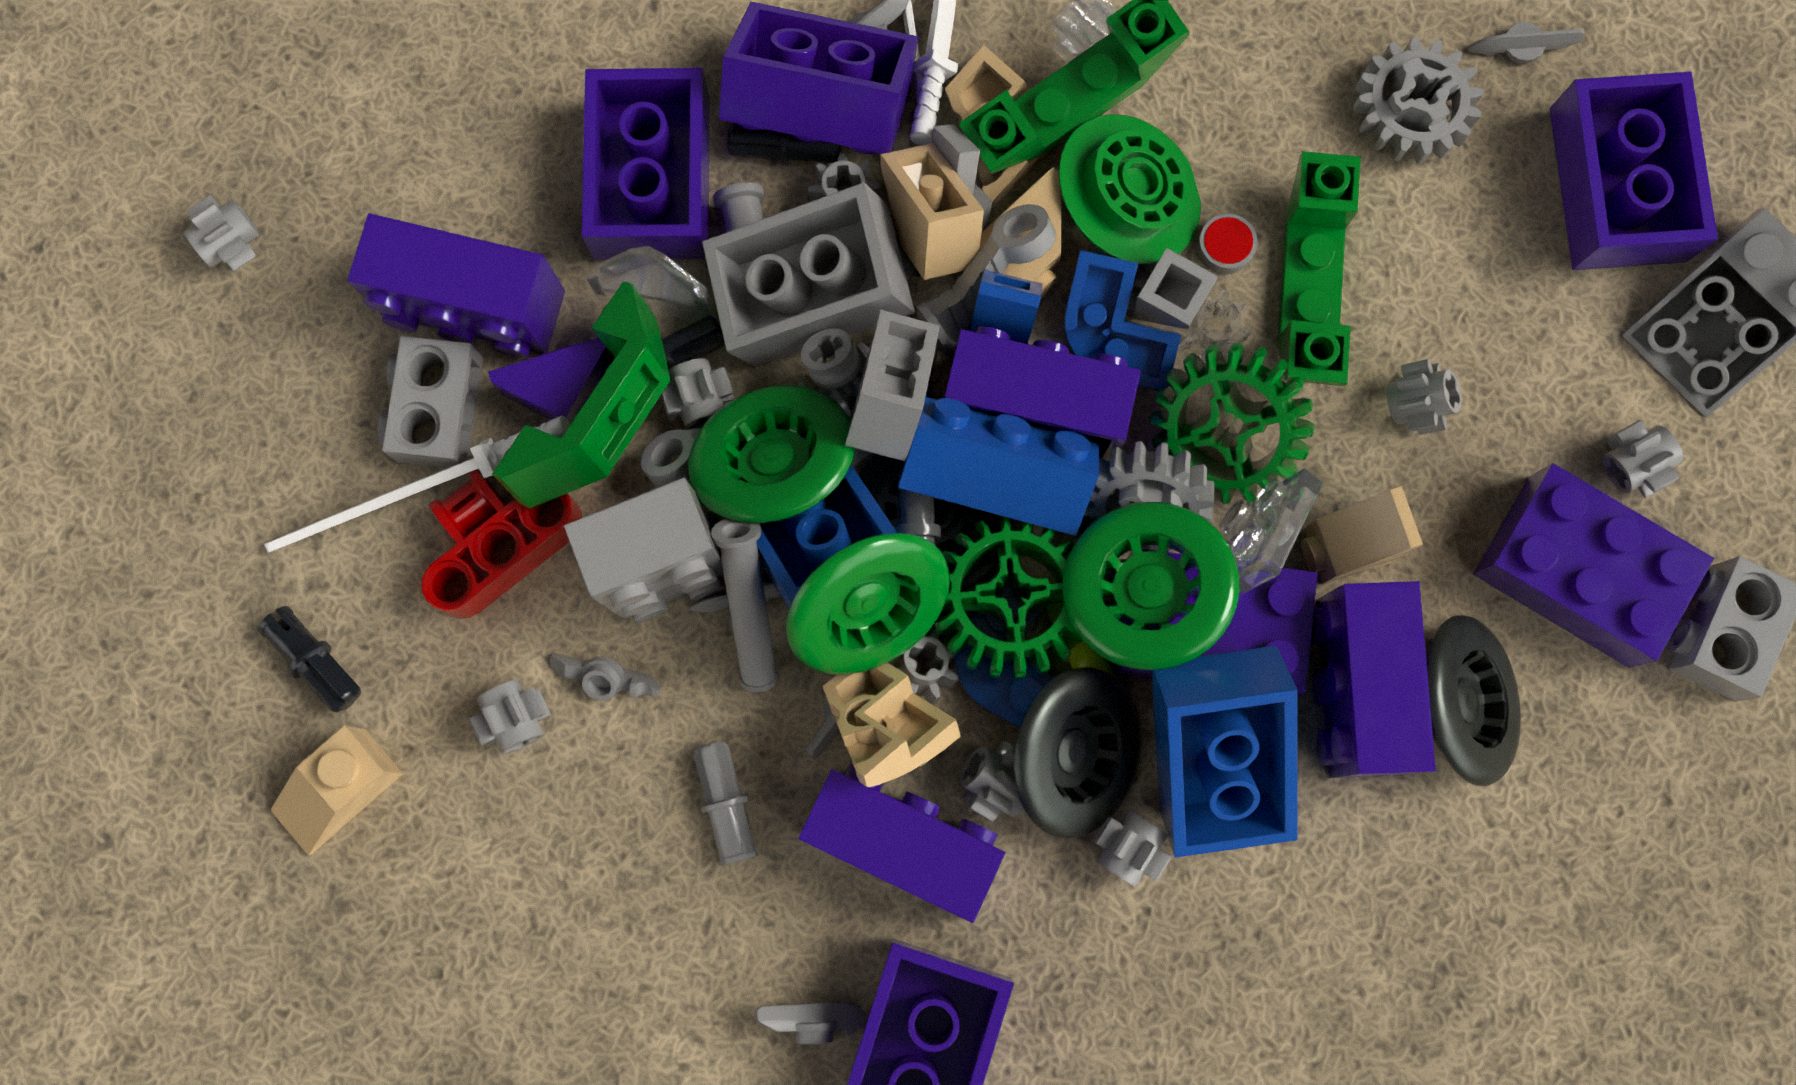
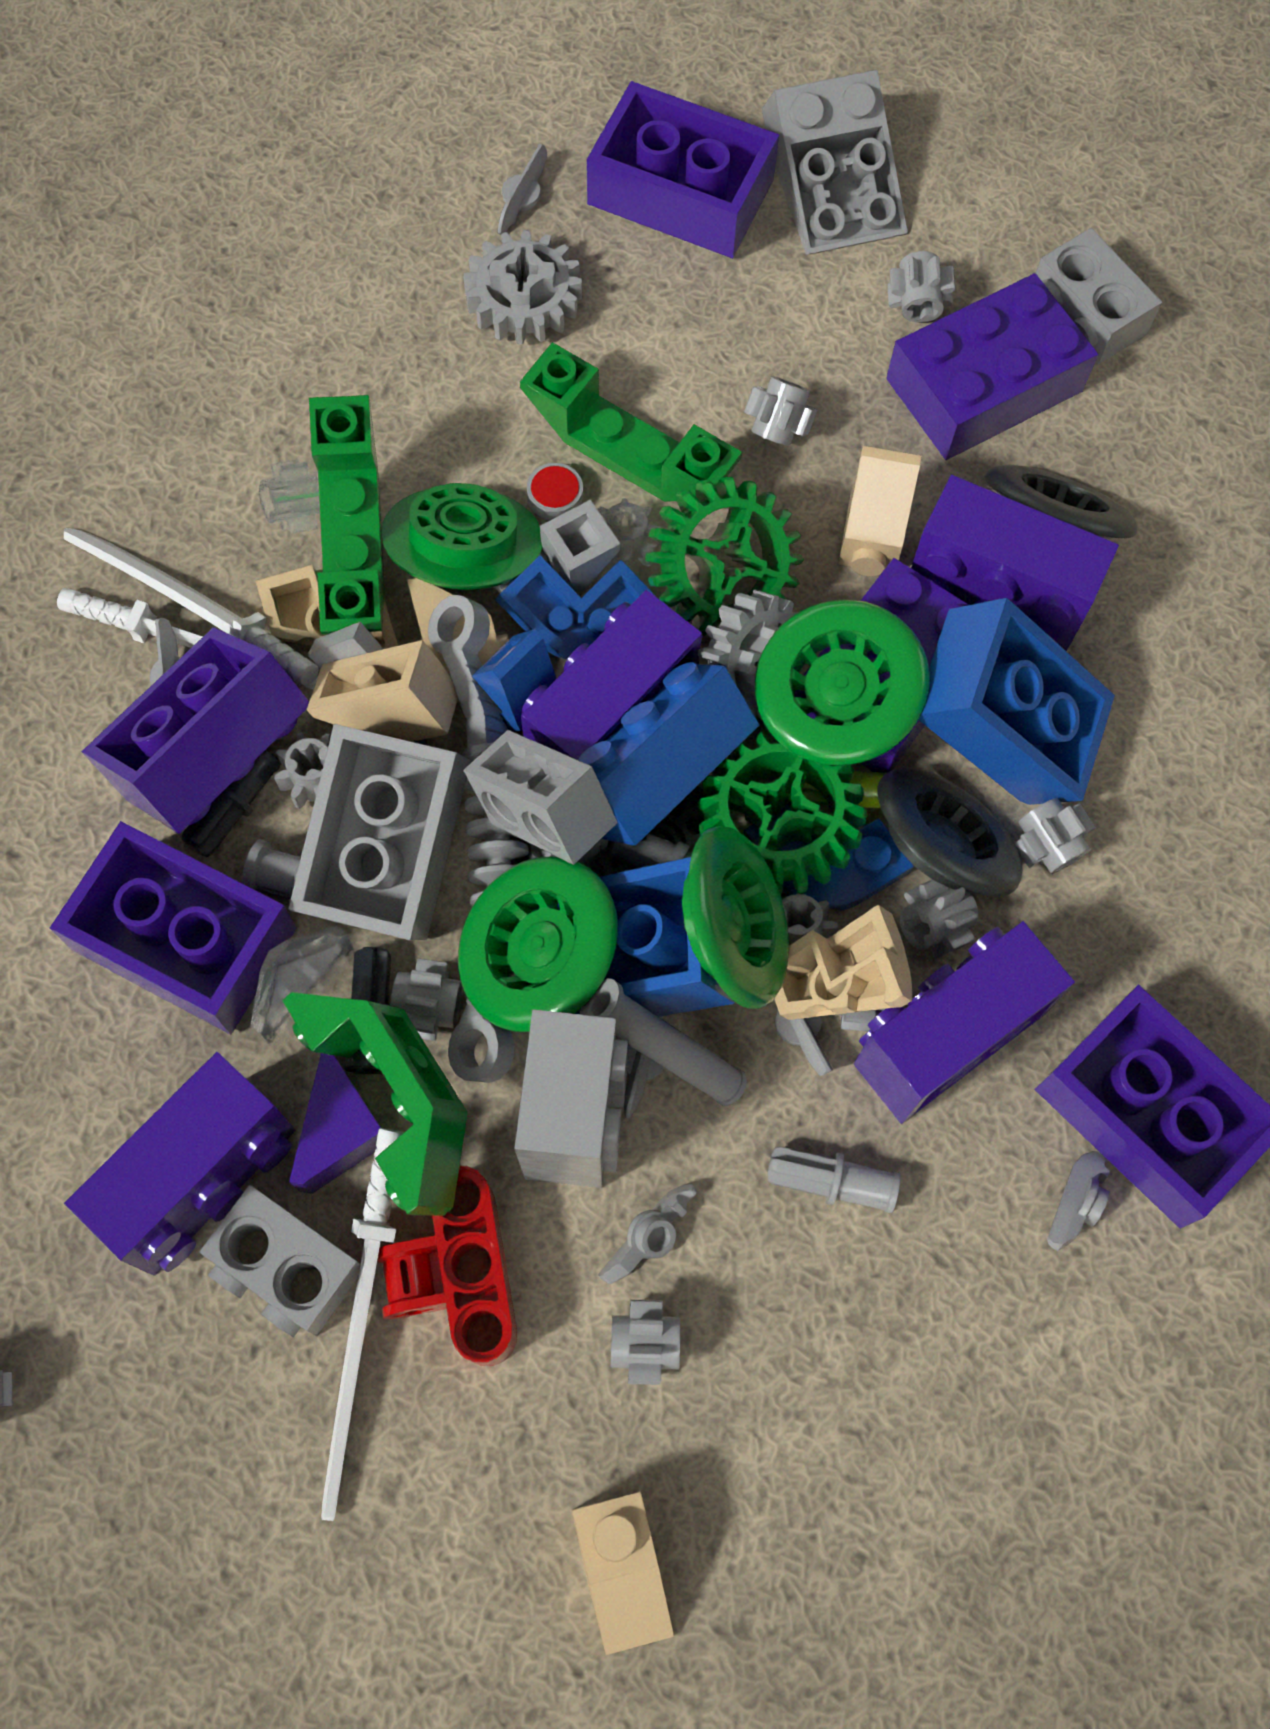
camera: 65 degrees left, 10 degrees down
(310, 659) = (472, 1528): black axle -> none
(822, 346) = (456, 844): light grey bush -> none
(1267, 528) = (838, 564): clear plate -> none

